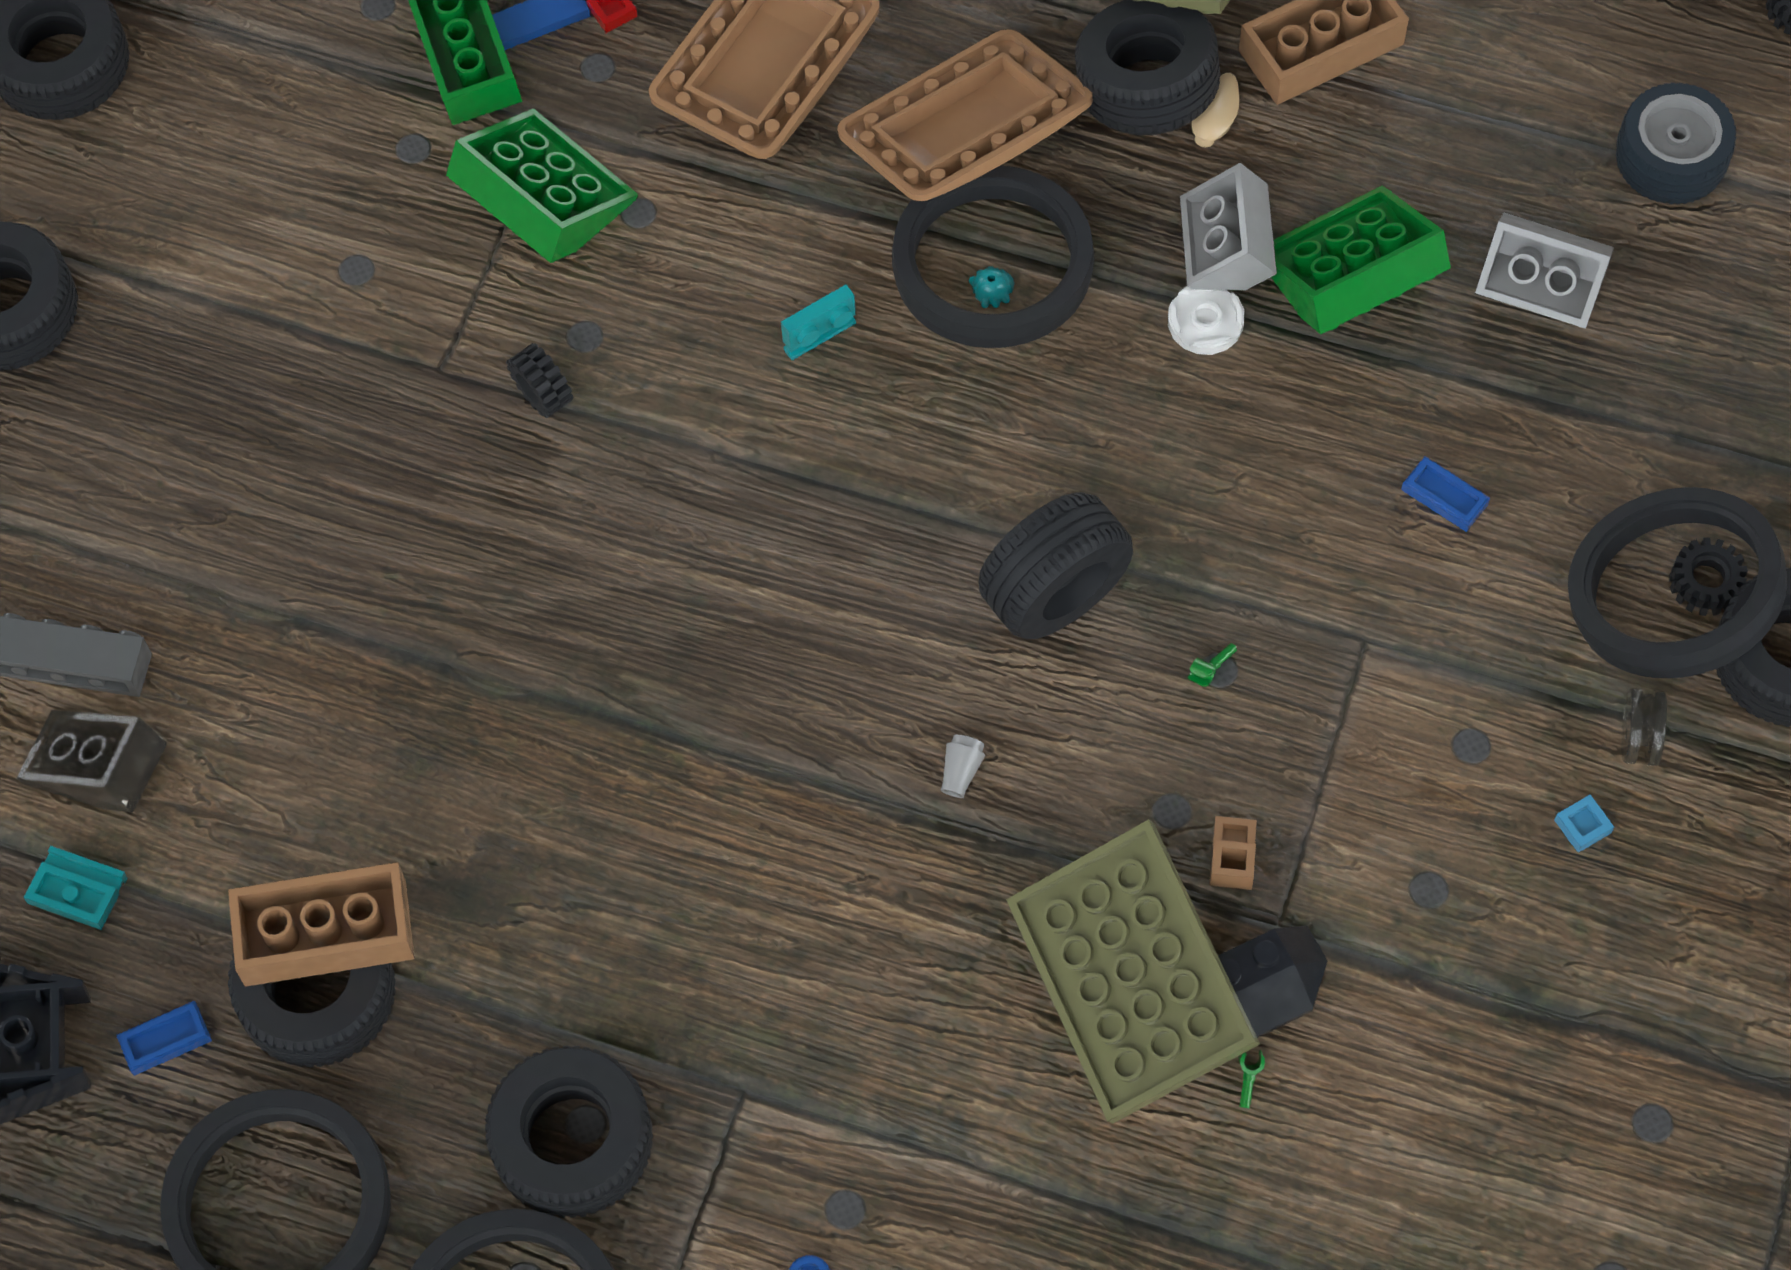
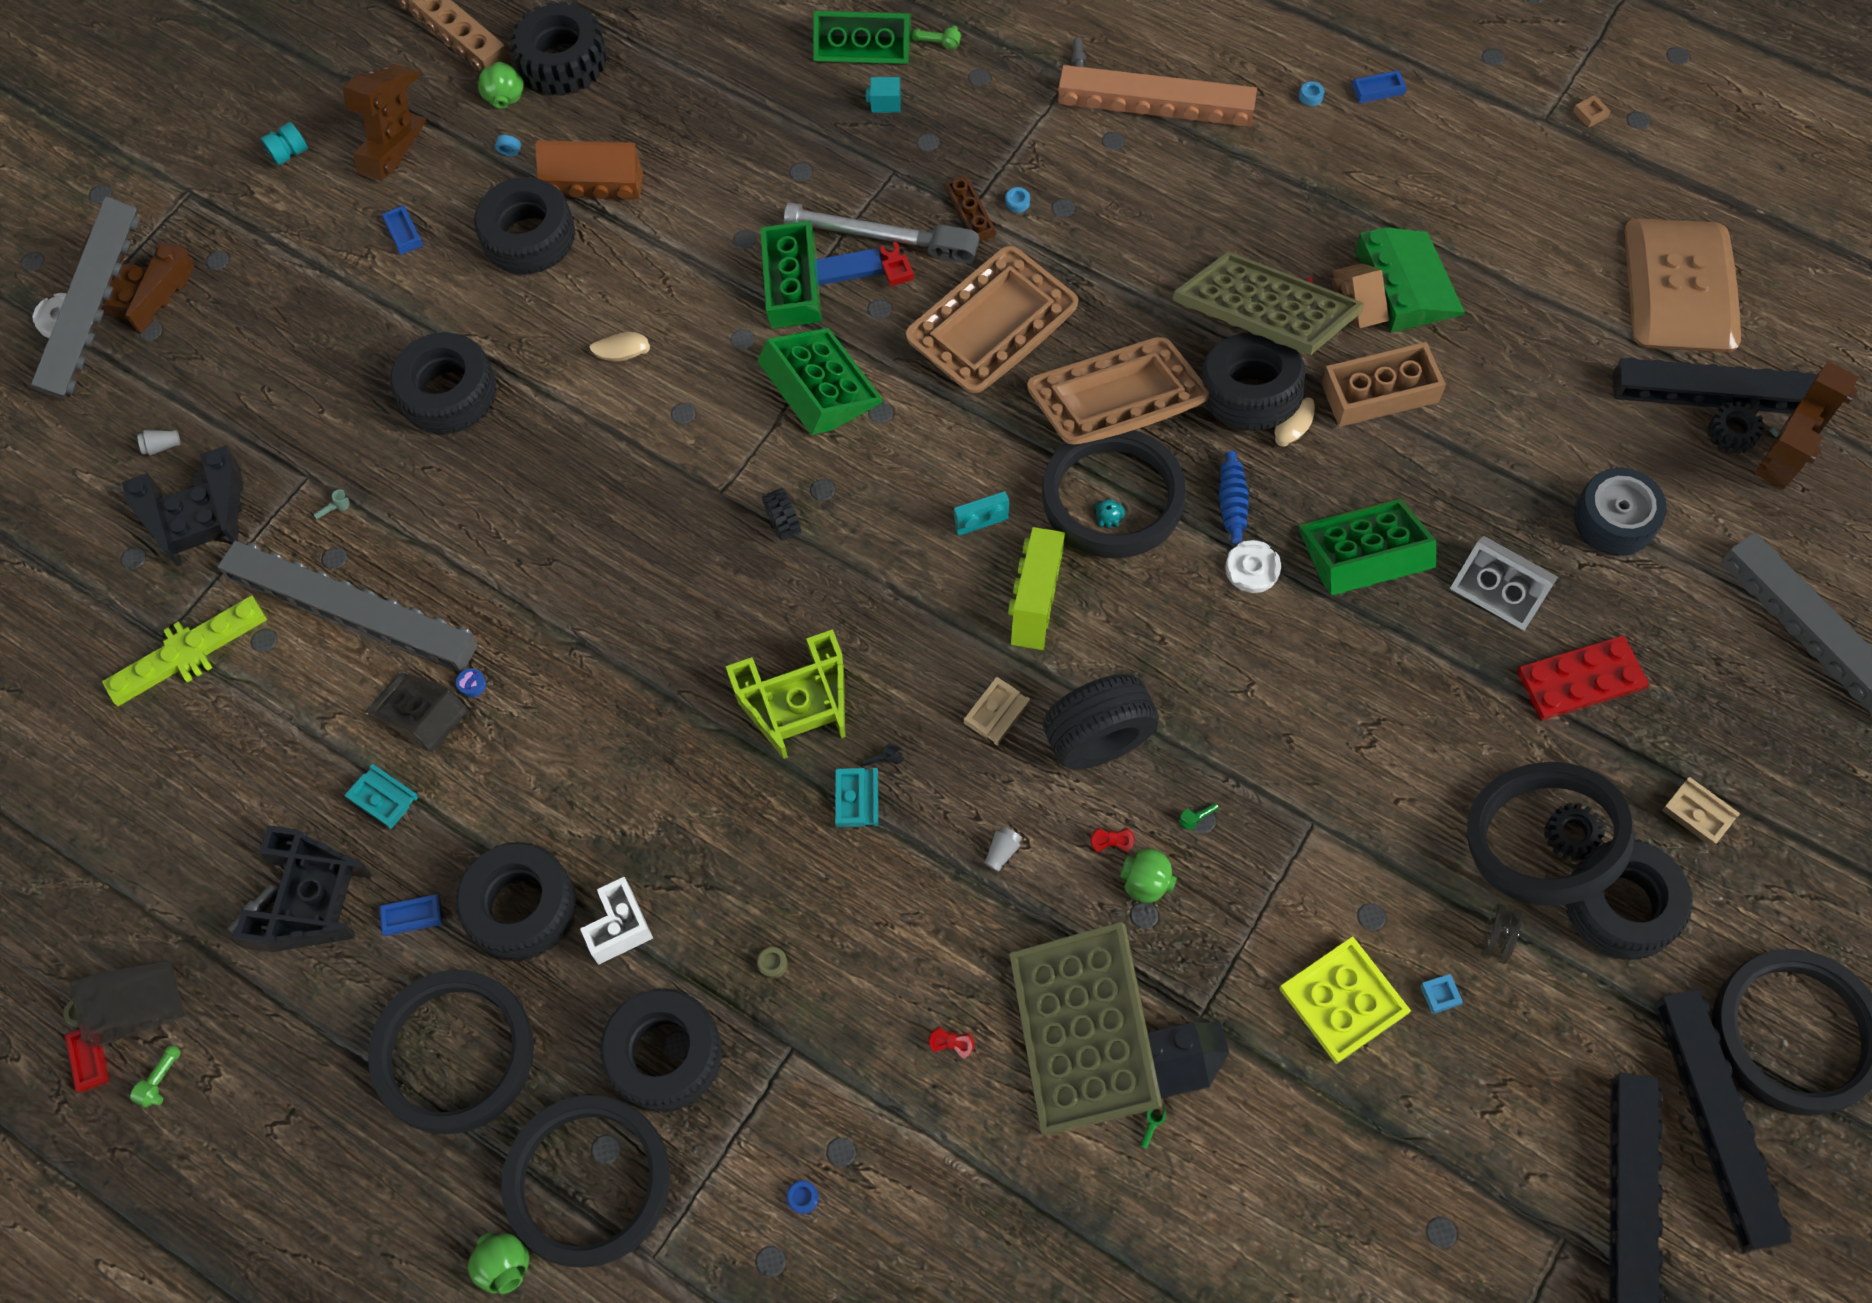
camera: 15 degrees right, 0 degrees up
(158, 706) = (471, 683): none -> blue tile
(241, 193) = (620, 346): none -> tan arm
(320, 924) = (525, 864): medium nougat brick -> none
(470, 980) = (622, 927): none -> white brick
(625, 629) = (795, 699): none -> lime wedge
(686, 986) = (772, 962): none -> olive tile
(745, 742) = (856, 797): none -> teal plate
(772, 675) = (887, 754): none -> black hand
(907, 585) = (996, 711): none -> tan plate
(919, 407) = (1036, 587): none -> lime wedge
(972, 1031) = (961, 1043): none -> red piece
(1092, 723) = (1123, 839): none -> red piece
(1157, 229) = (1233, 497): none -> blue piece
(1165, 757) = (1147, 875): none -> bright green plant
(1228, 232) = (1282, 509): light grey slope -> none
(1233, 853) = (1179, 957): medium nougat brick -> none
(1445, 493) = (1395, 728): blue tile -> none
(1461, 859) = (1344, 1000): none -> neon yellow plate
(1675, 374) = (1582, 678): none -> red plate

